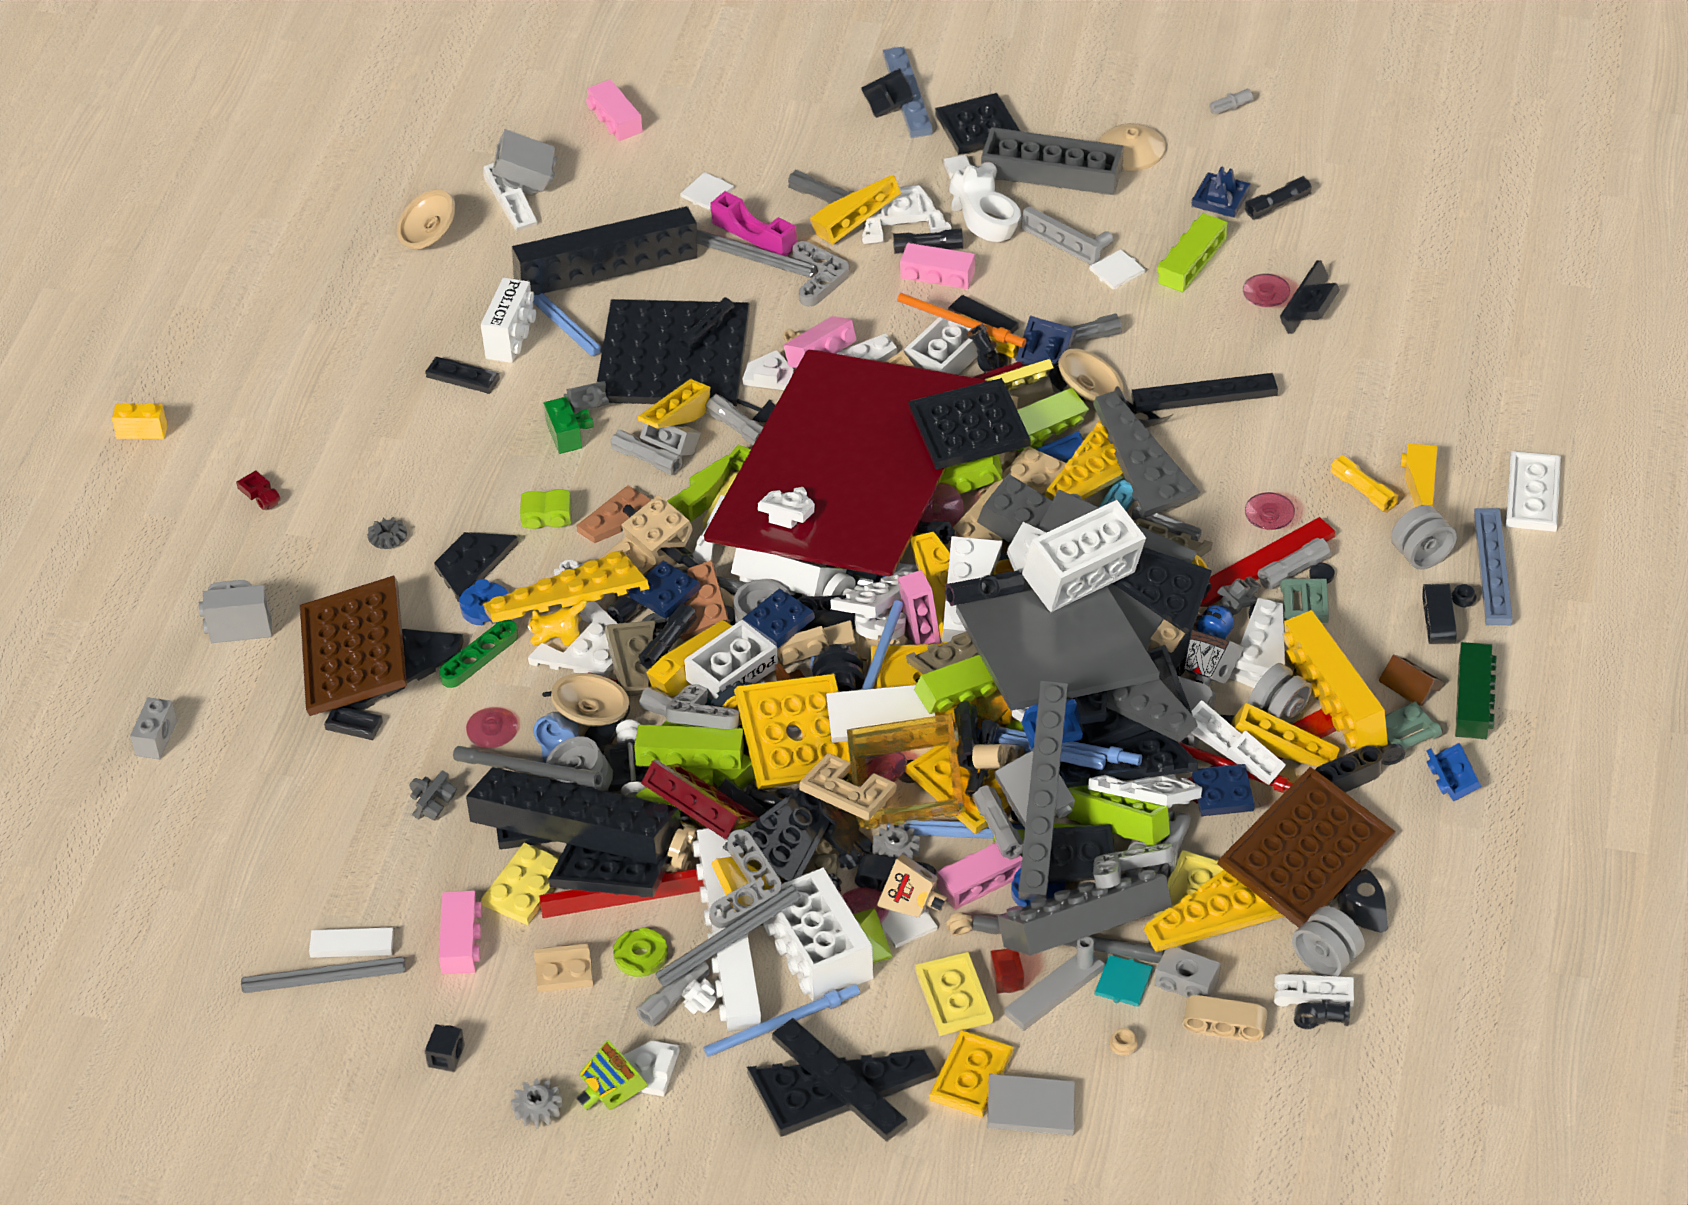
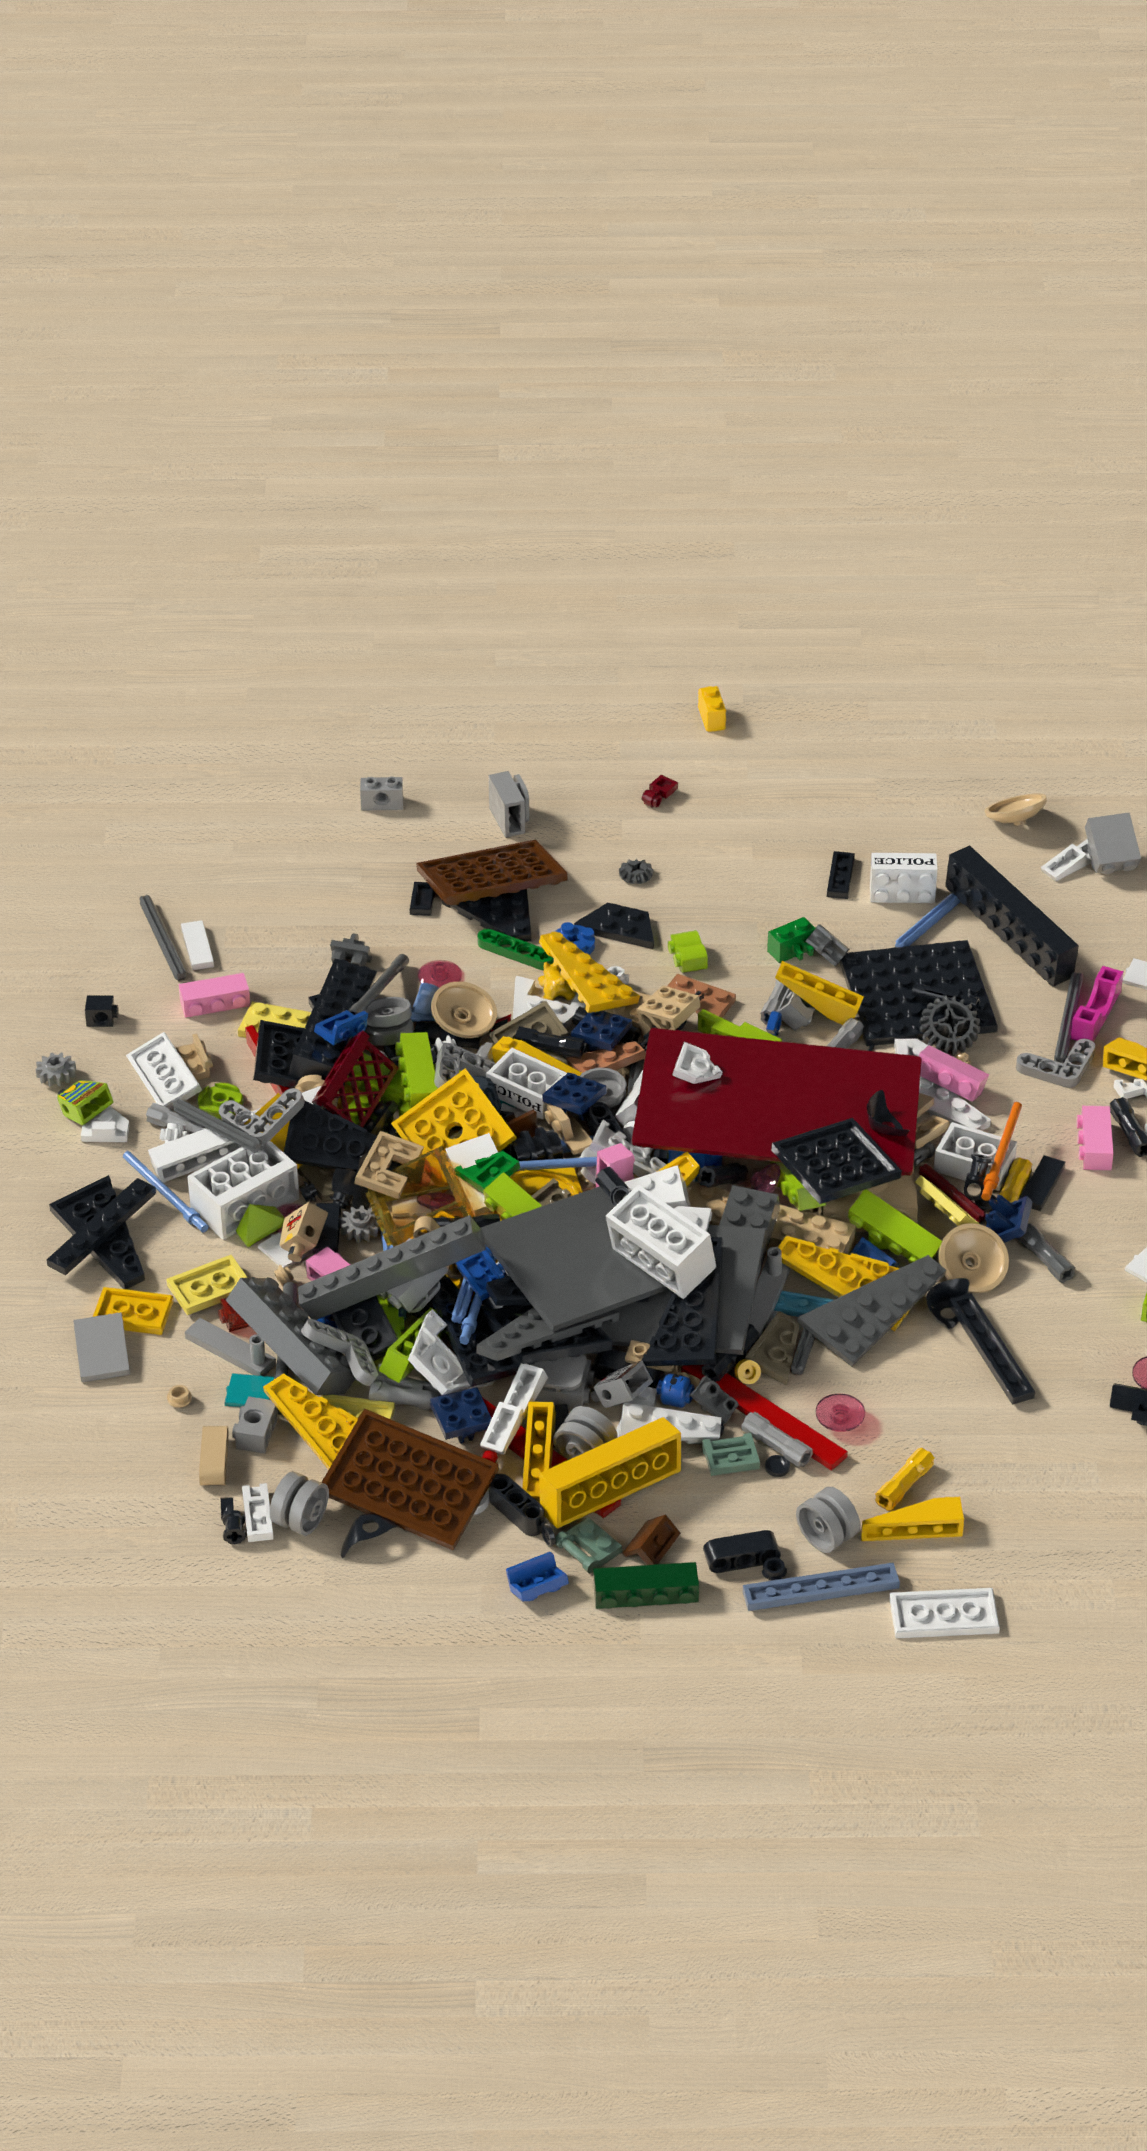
camera: 75 degrees right, 5 degrees down
(579, 996) = (163, 1071): none -> white tile
(624, 786) = (341, 1026): none -> blue bracket
(691, 460) = (774, 1023): none -> blue tile
(749, 329) = (966, 1021): none -> dark grey gear
(896, 697) = (488, 1170): none -> green wing
(915, 390) = (879, 1113): none -> black piece

